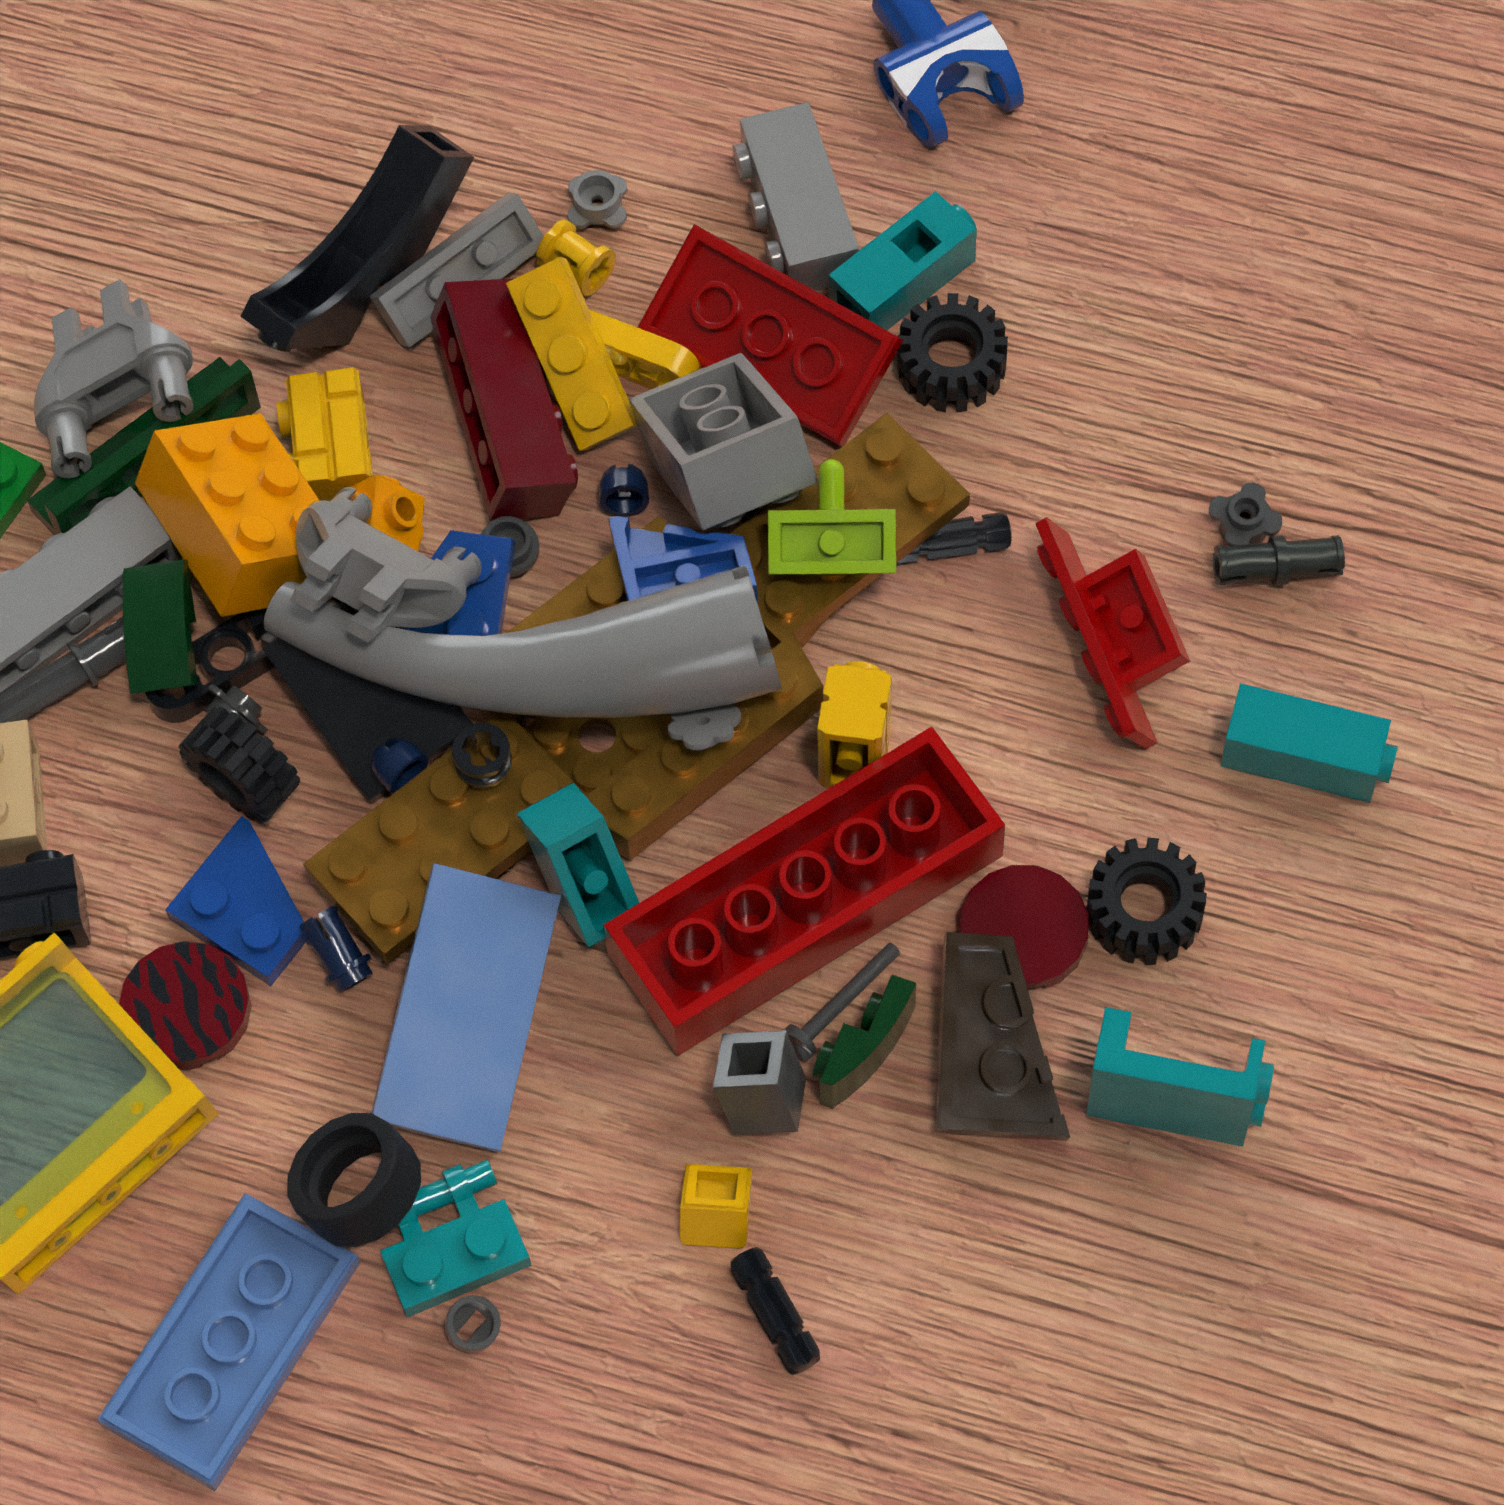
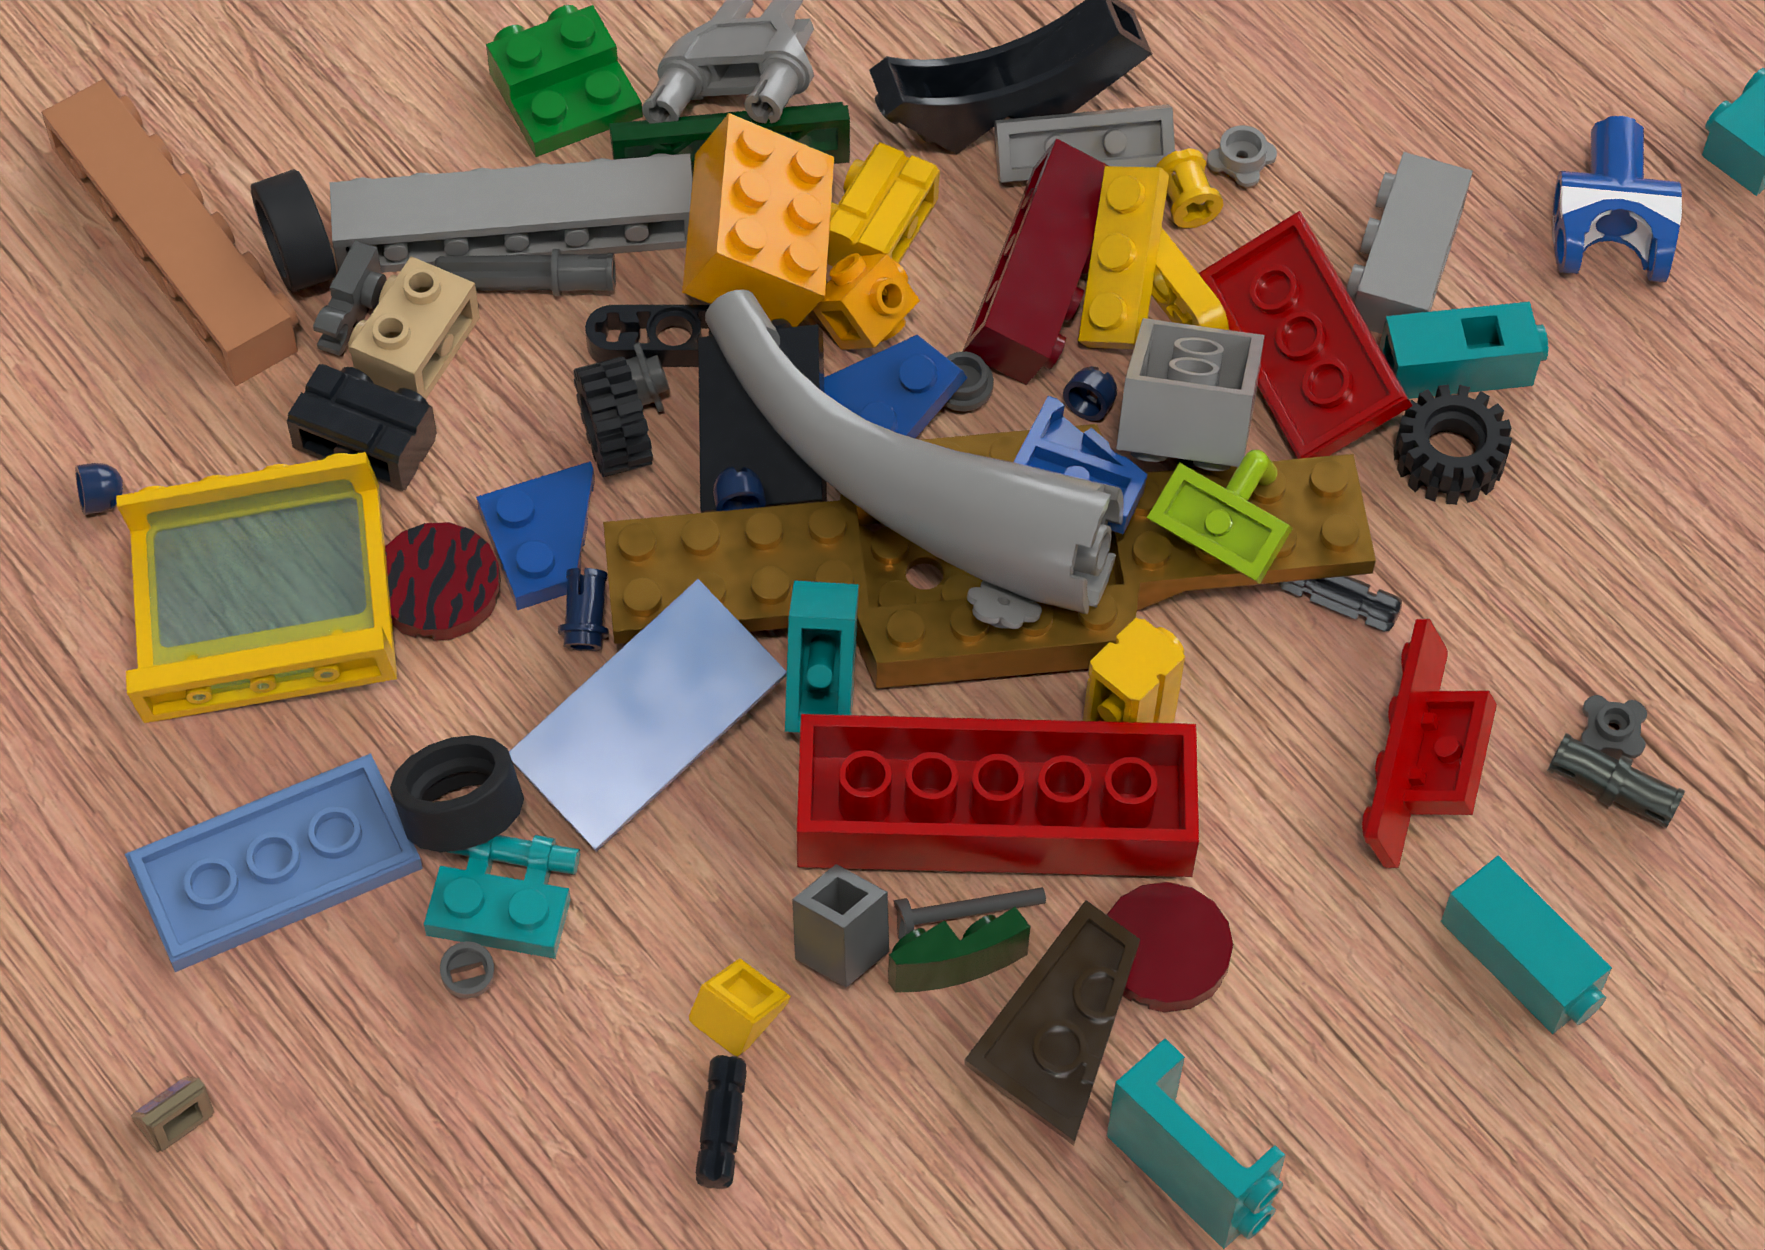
camera: 30 degrees right, 5 degrees down
(157, 626) = (628, 268): dark green slope -> none
(374, 571) = (818, 321): light grey connector -> none
(492, 772) = (807, 502): black bush -> none
(1152, 866) = (1281, 1024): black tyre -> none

